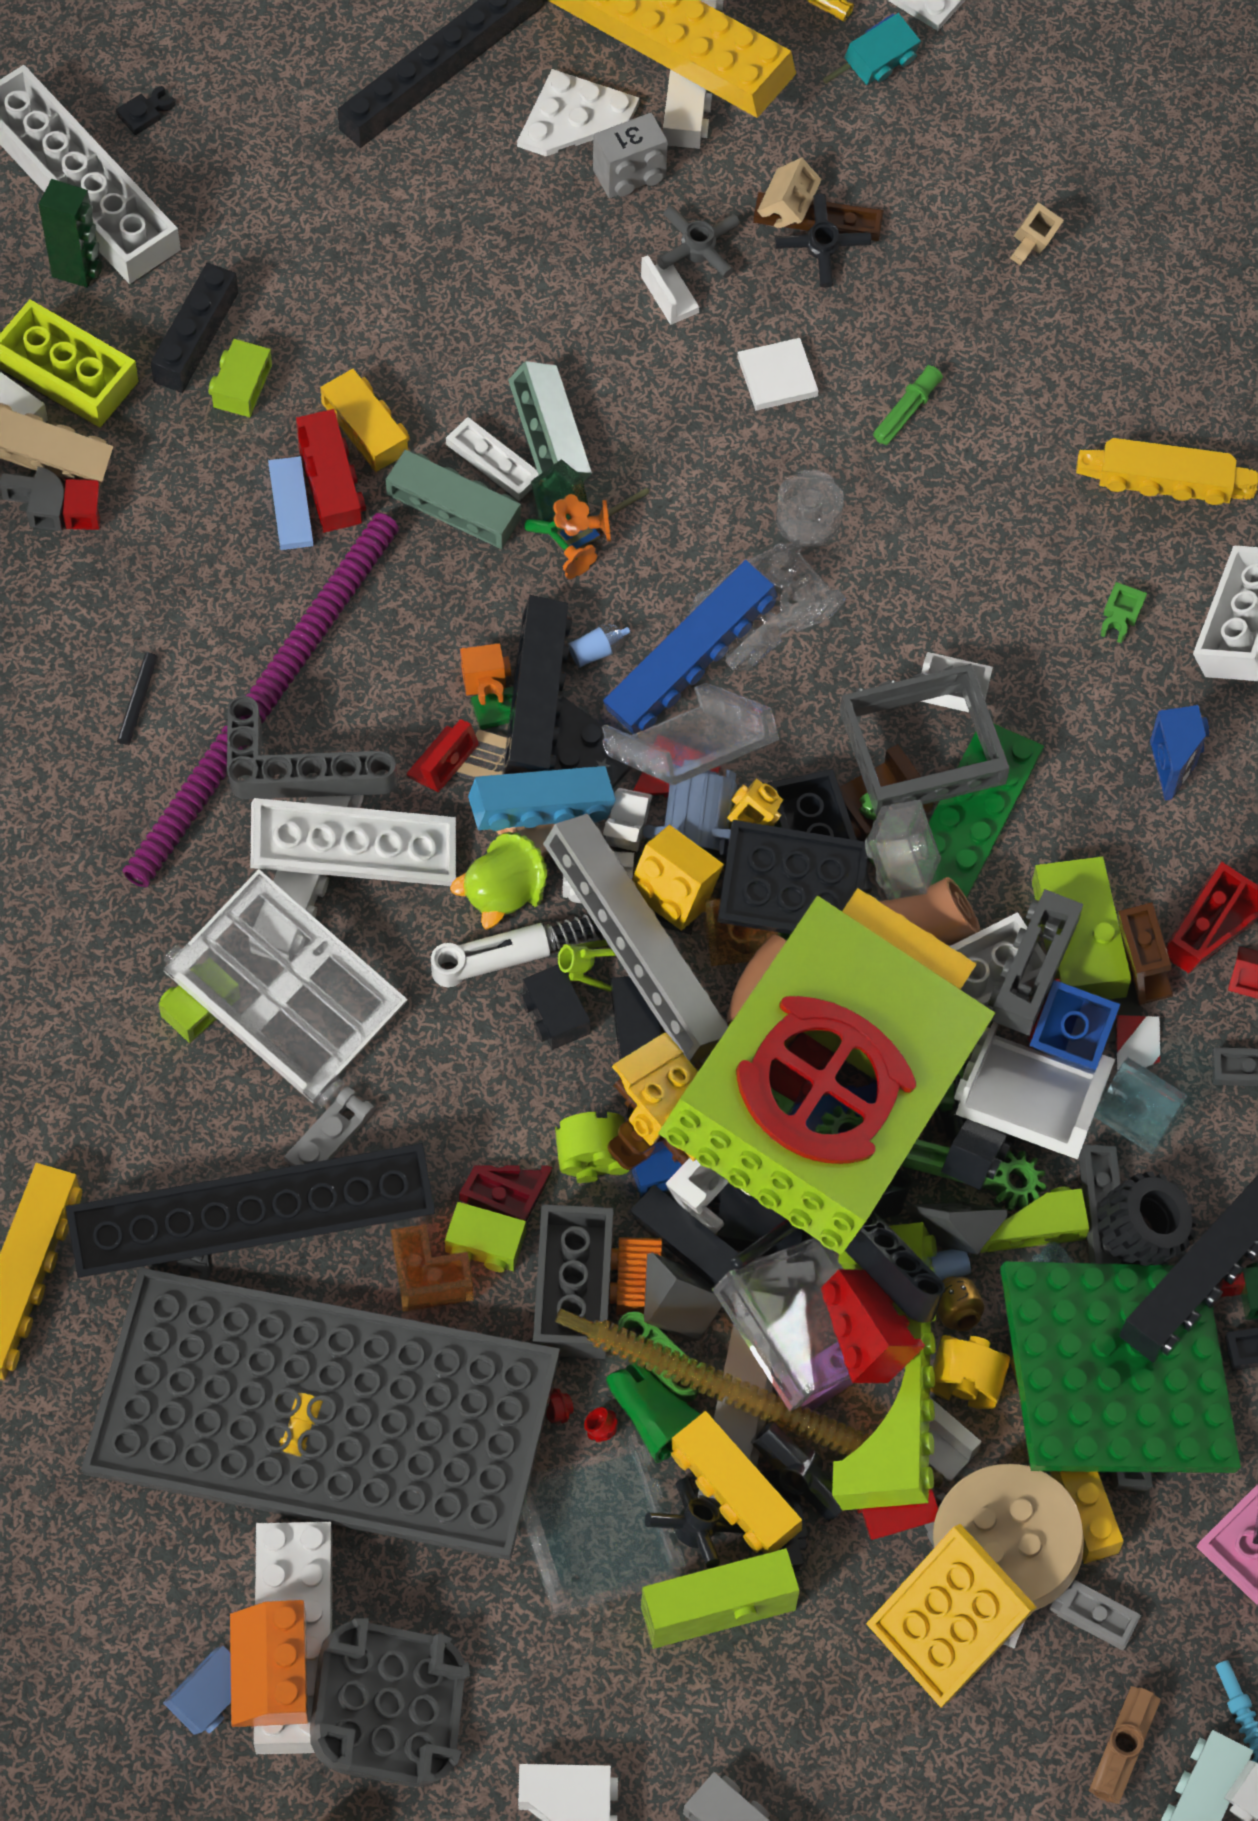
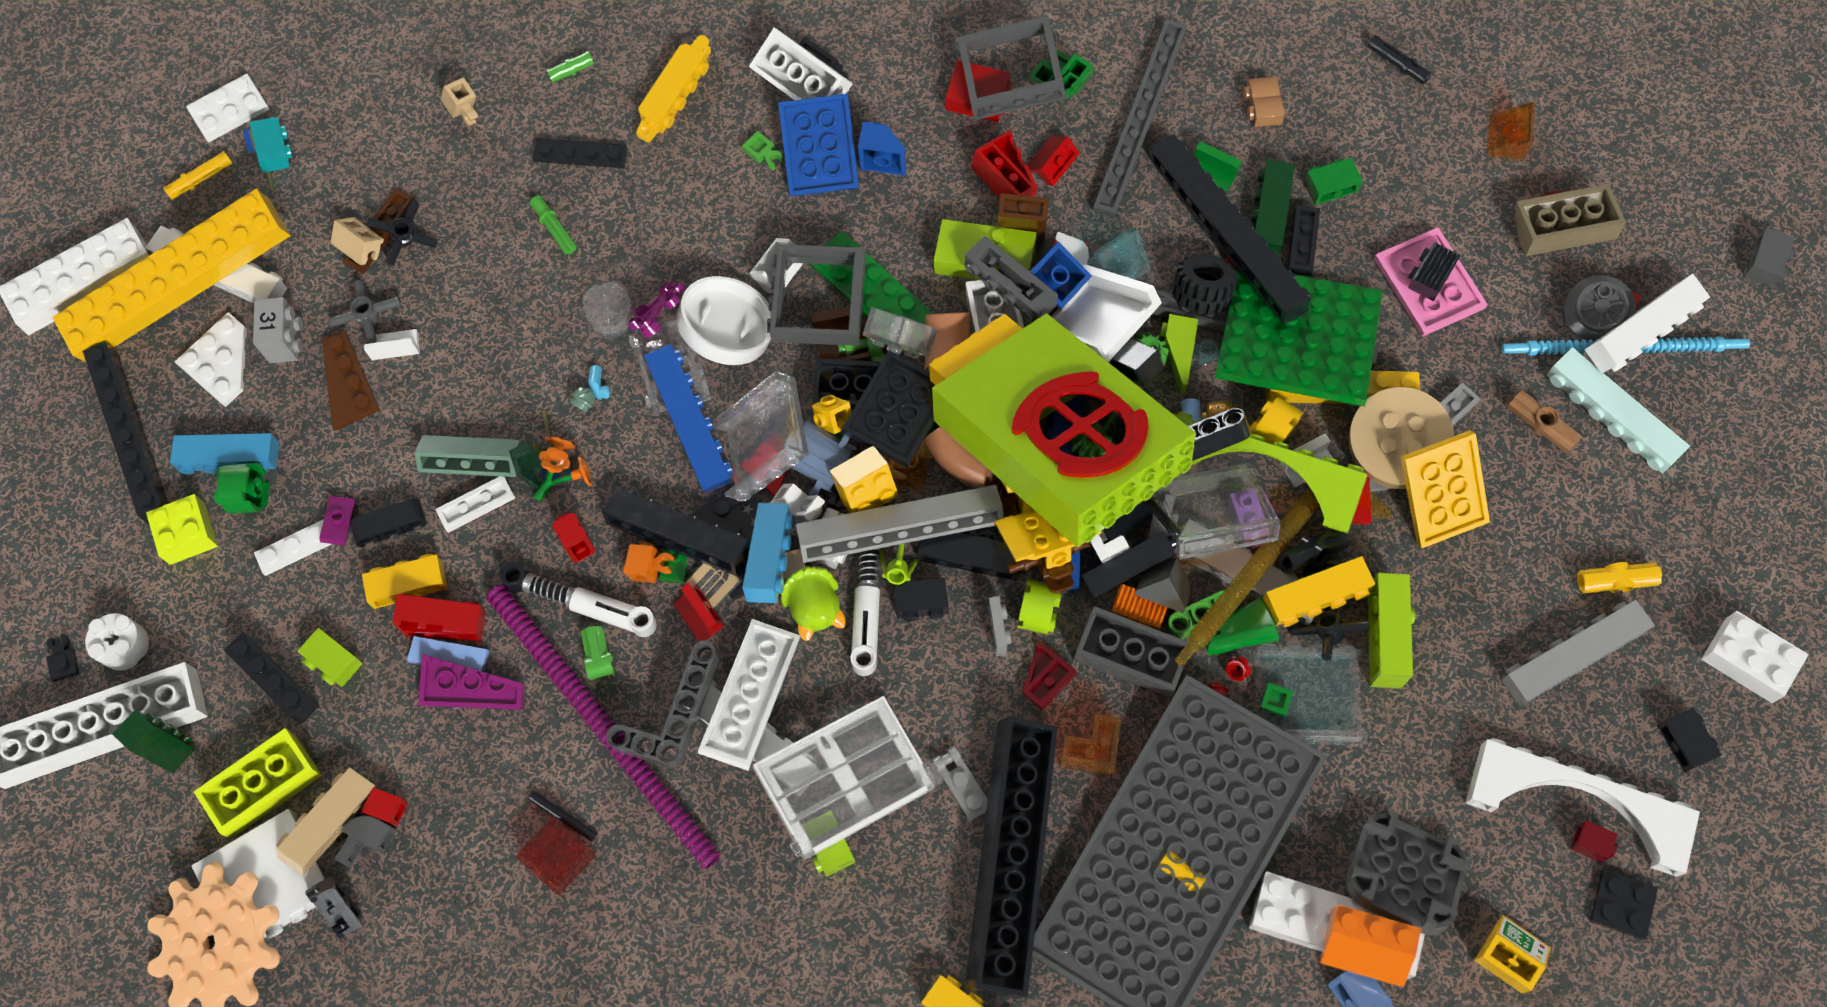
camera: 65 degrees left, 5 degrees up
(84, 704) = (555, 856): none -> clear red brick
(182, 153) = (116, 641): none -> white brick
(256, 534) = (463, 687): none -> magenta wing
(341, 163) = (182, 529): none -> neon yellow brick
(344, 664) = (597, 657): none -> bright green piece
(366, 289) = (290, 549): none -> white plate
(410, 618) = (580, 600): none -> piece
(414, 202) = (242, 488): none -> green brick
(414, 319) = (337, 520): none -> magenta plate
(433, 372) = (387, 521): none -> black beam
(453, 498) = (496, 540): sand green brick -> none
(455, 168) = (211, 451): none -> dark azure brick
(484, 577) = (573, 537): none -> red brick
(486, 1237) = (1078, 701): lime brick -> none
(549, 1106) = (1000, 635): none -> light grey plate
(573, 1483) = (1276, 700): none -> green plate
(595, 263) = (347, 385): none -> reddish brown wing
(597, 644) = (653, 480): light blue piece -> none
(676, 525) = (583, 399): none -> sand green plate
(704, 532) = (595, 383): none -> medium azure arm
(777, 374) = (491, 297): white tile -> none
(798, 547) = (647, 315): none -> magenta plant
(843, 639) = (724, 320): none -> white piece
(868, 1327) = (1238, 469): red wedge -> none
(904, 1548) = (1379, 509): none -> clear yellow tile
(958, 1224) = (1173, 388): dark grey slope -> none
(1026, 399) = (580, 153): none -> black plate
(1147, 341) = (570, 67): none -> bright green pin
(1151, 668) = (819, 145): none -> blue plate

